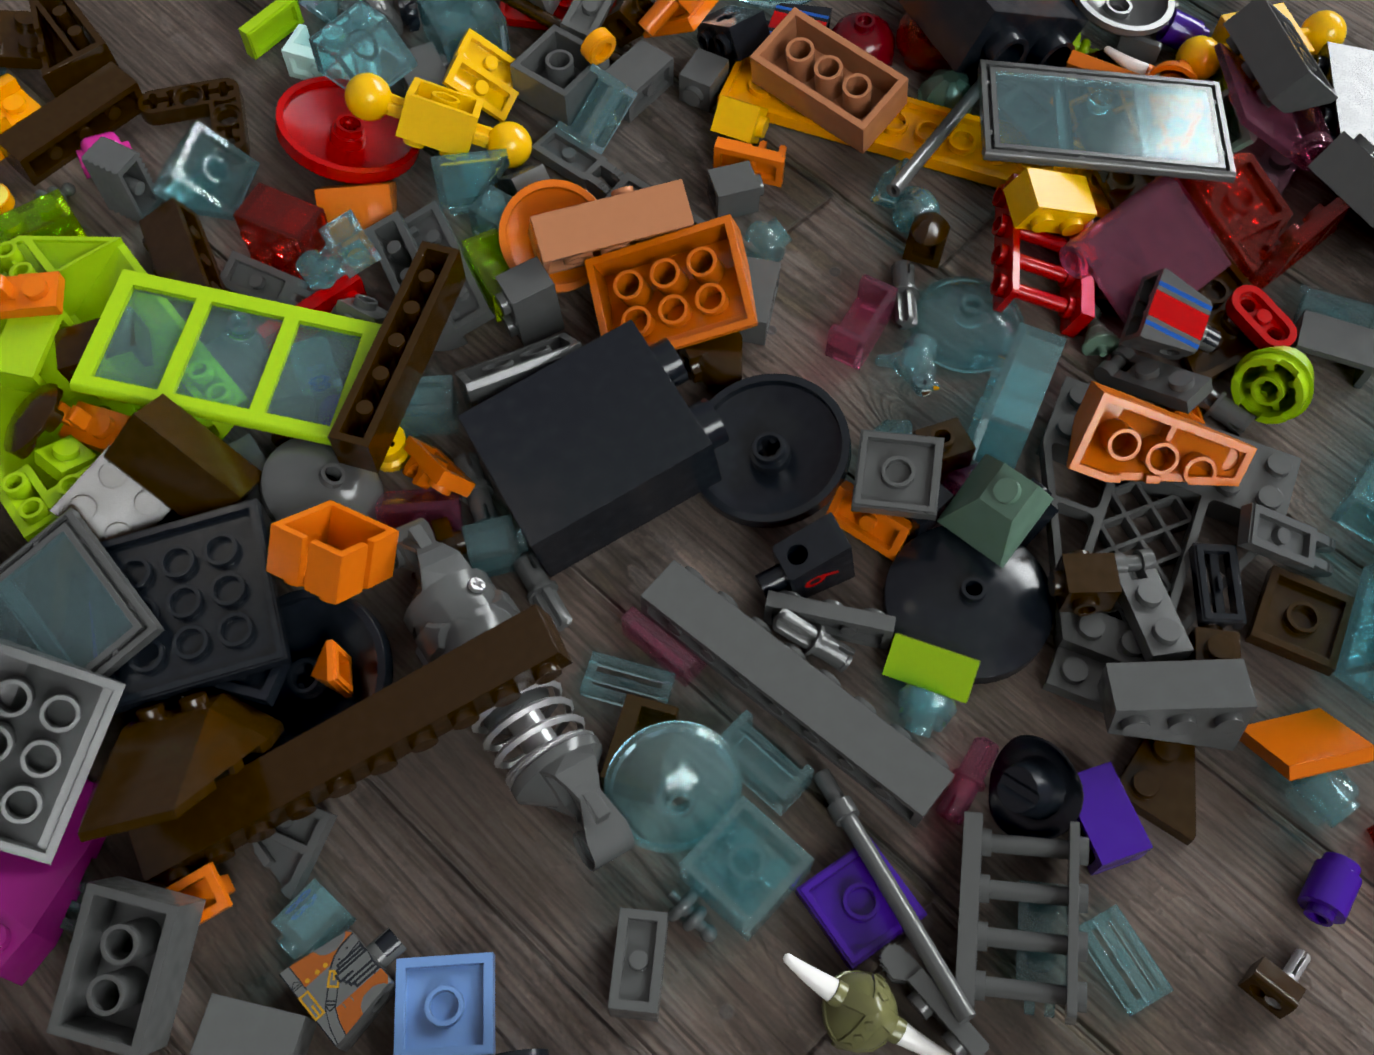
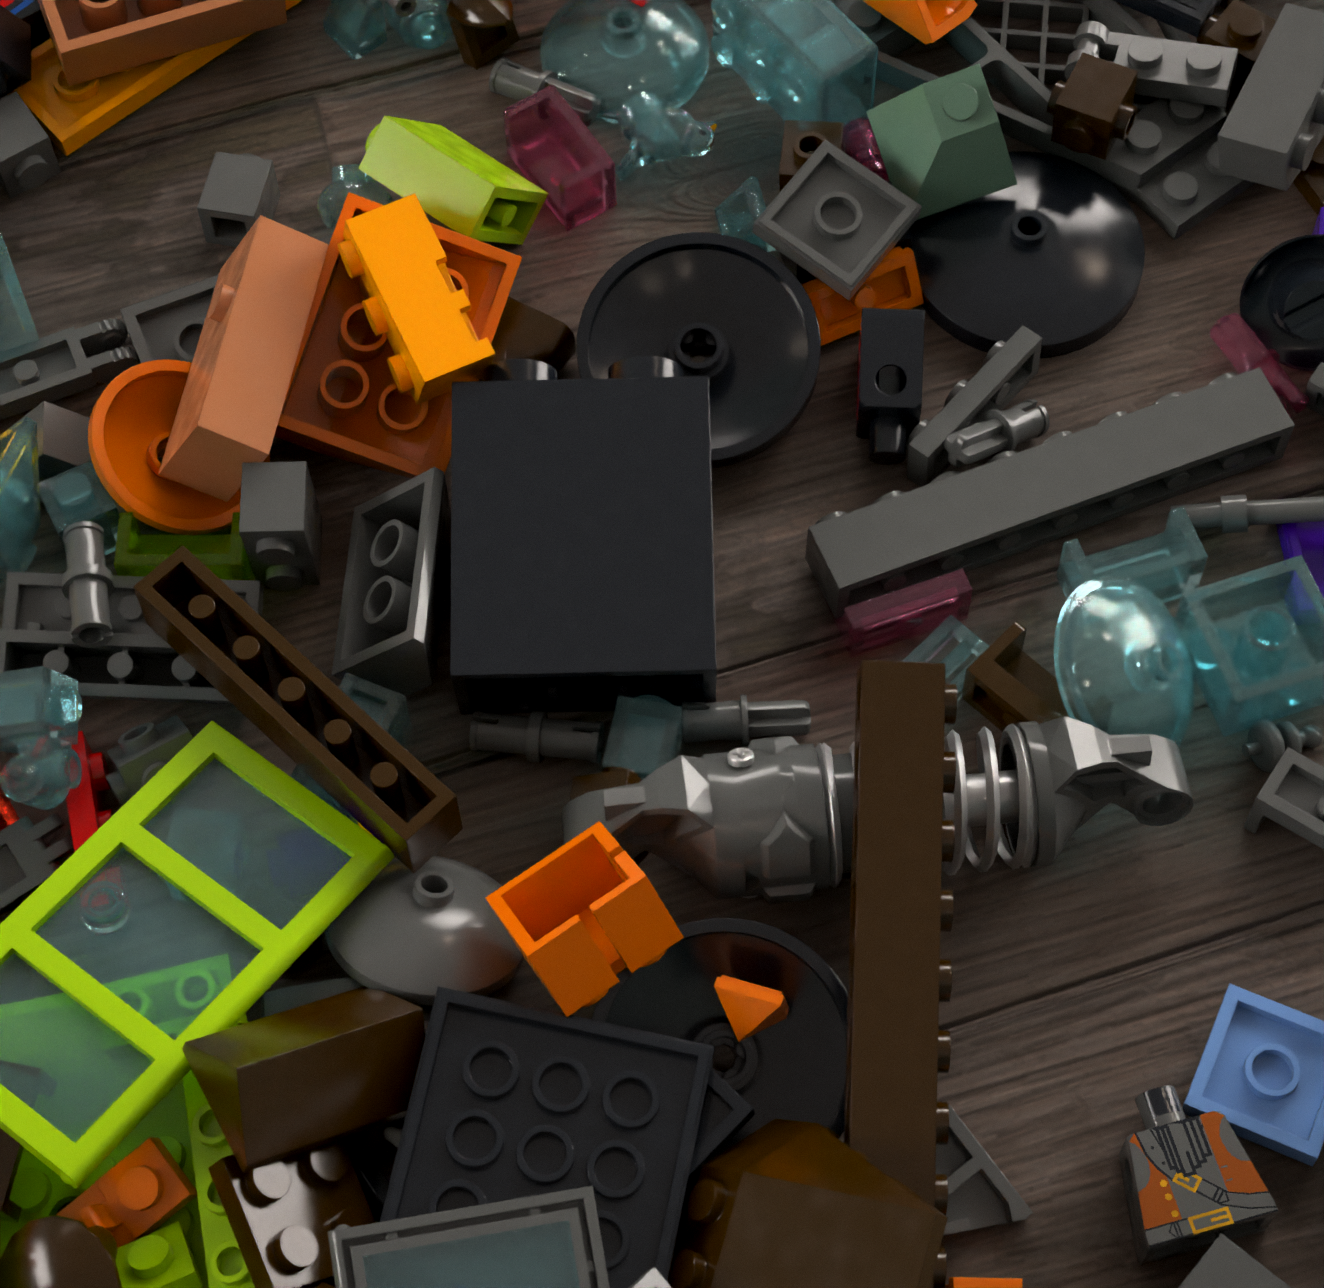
camera: 60 degrees left, 0 degrees up
(311, 921) = (1083, 1192): clear light blue brick -> none
(404, 506) = (521, 815): clear pink panel -> none
(432, 468) = (506, 755): orange plate -> none
(441, 231) = (87, 584): none -> dark grey pin
(682, 280) = (413, 299): none -> light orange wedge
(740, 120) = (127, 132): yellow brick -> none
(765, 162) = (182, 170): orange plate -> none
(800, 274) = (452, 180): none -> lime brick
(924, 710) = (1151, 363): clear light blue cone -> none
(931, 667) = (1099, 330): lime tile -> none

